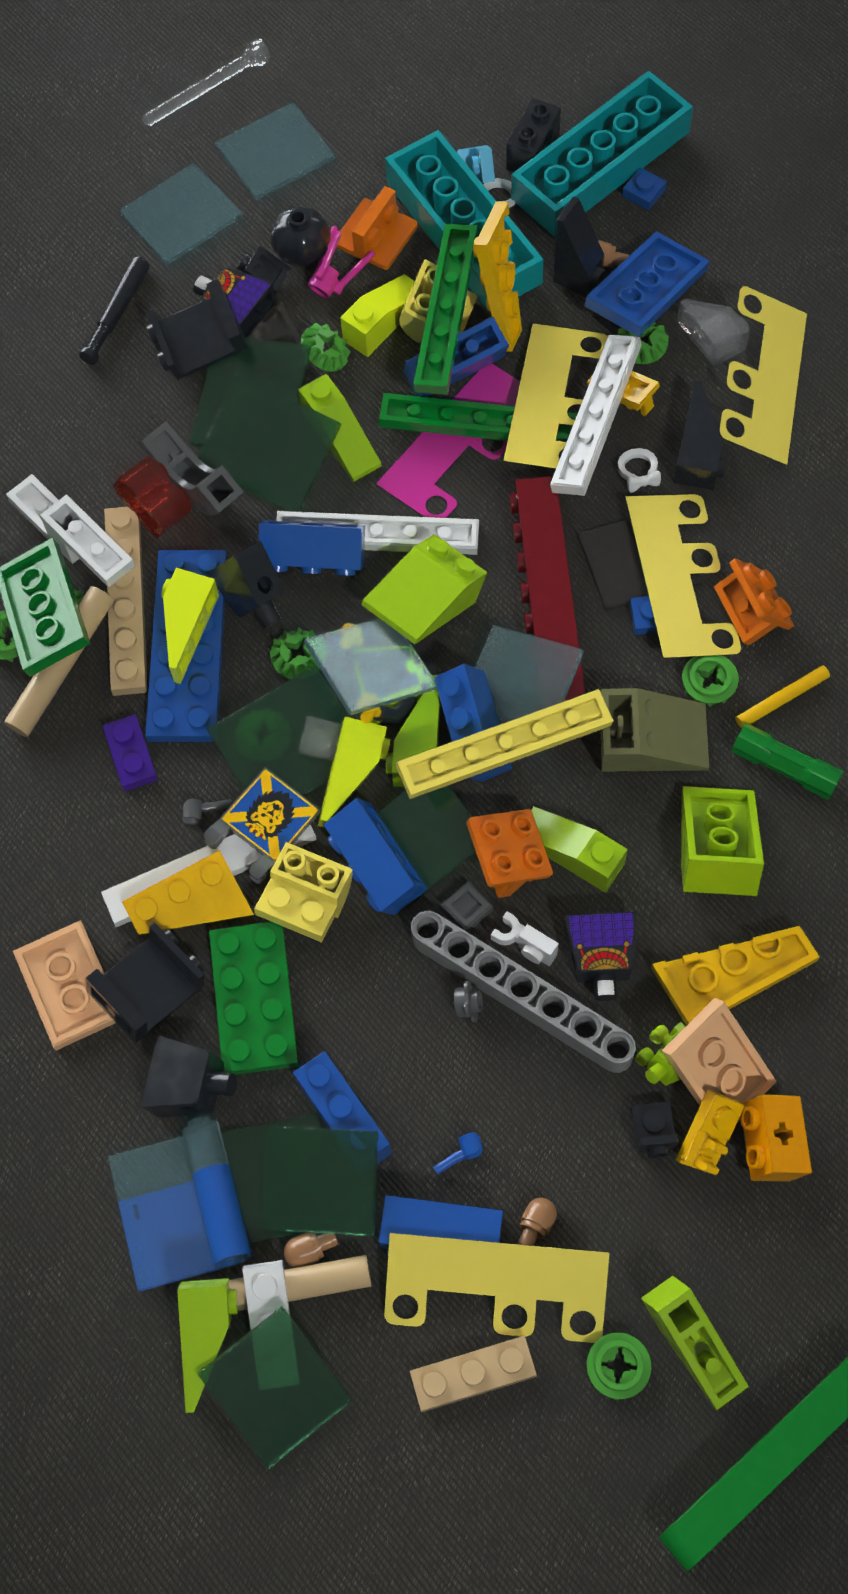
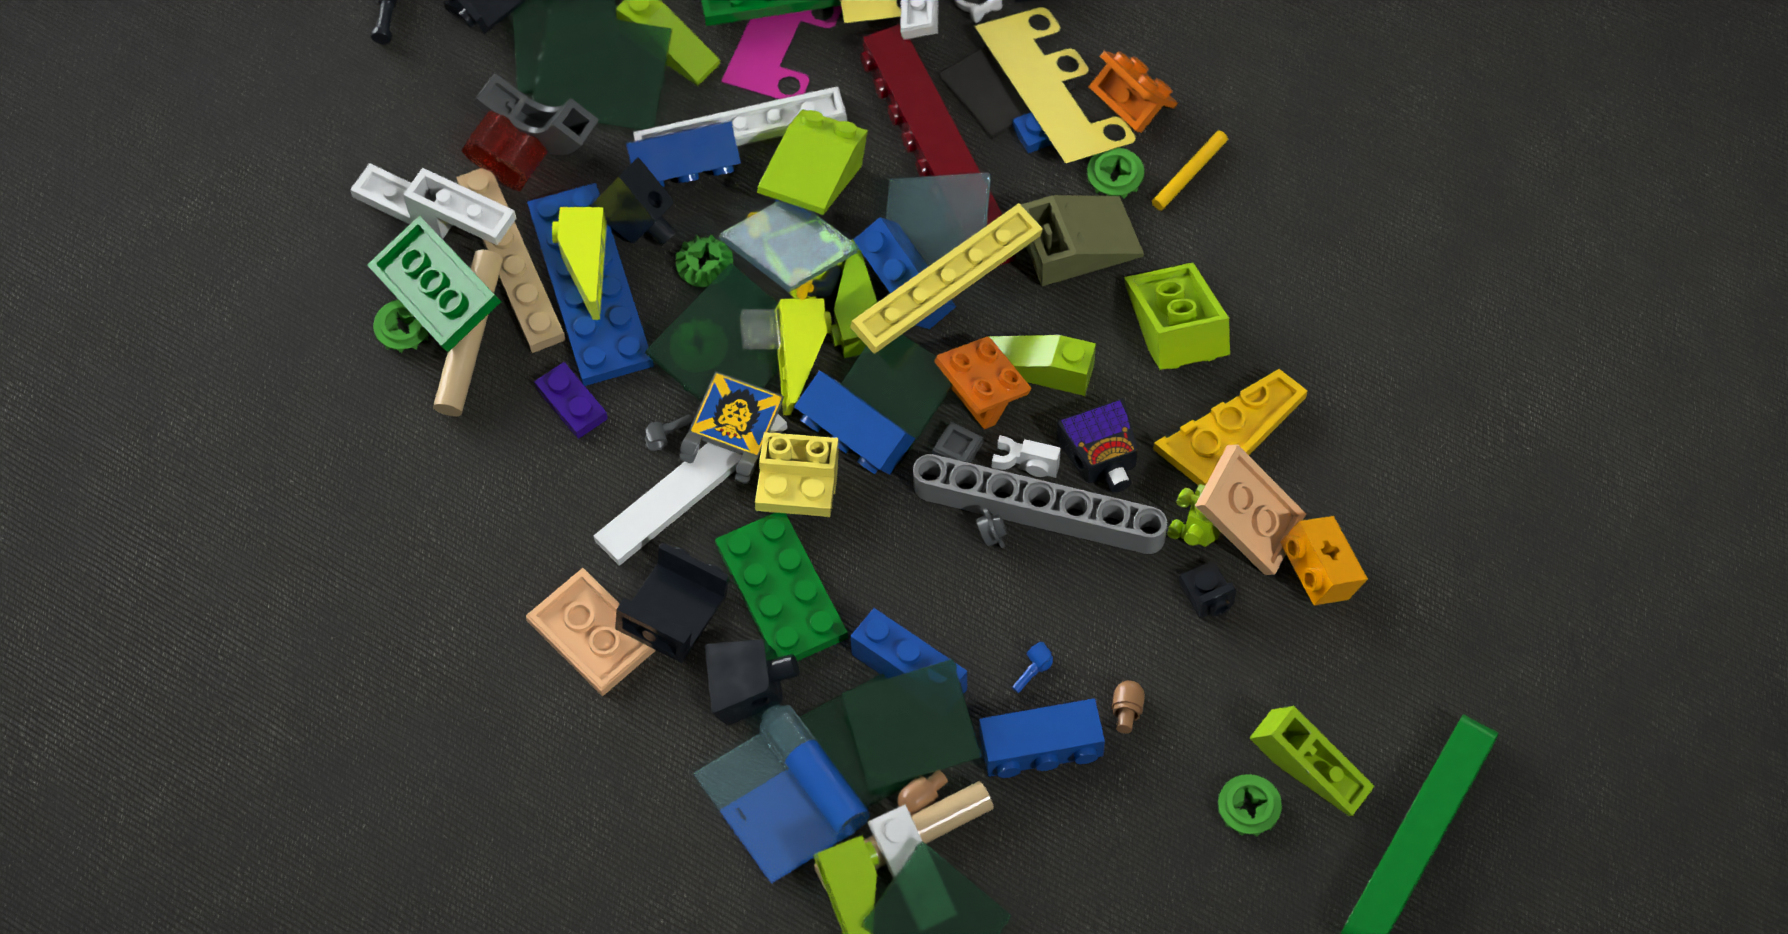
camera: 20 degrees left, 5 degrees down
(190, 897) = (685, 512): yellow wing -> none
(473, 1373) = (1116, 855): tan plate -> none
(501, 1270) = (1115, 751): light yellow piece -> none
(710, 1132) = (1262, 573): yellow plate -> none
(765, 750) = (1241, 230): green axle -> none

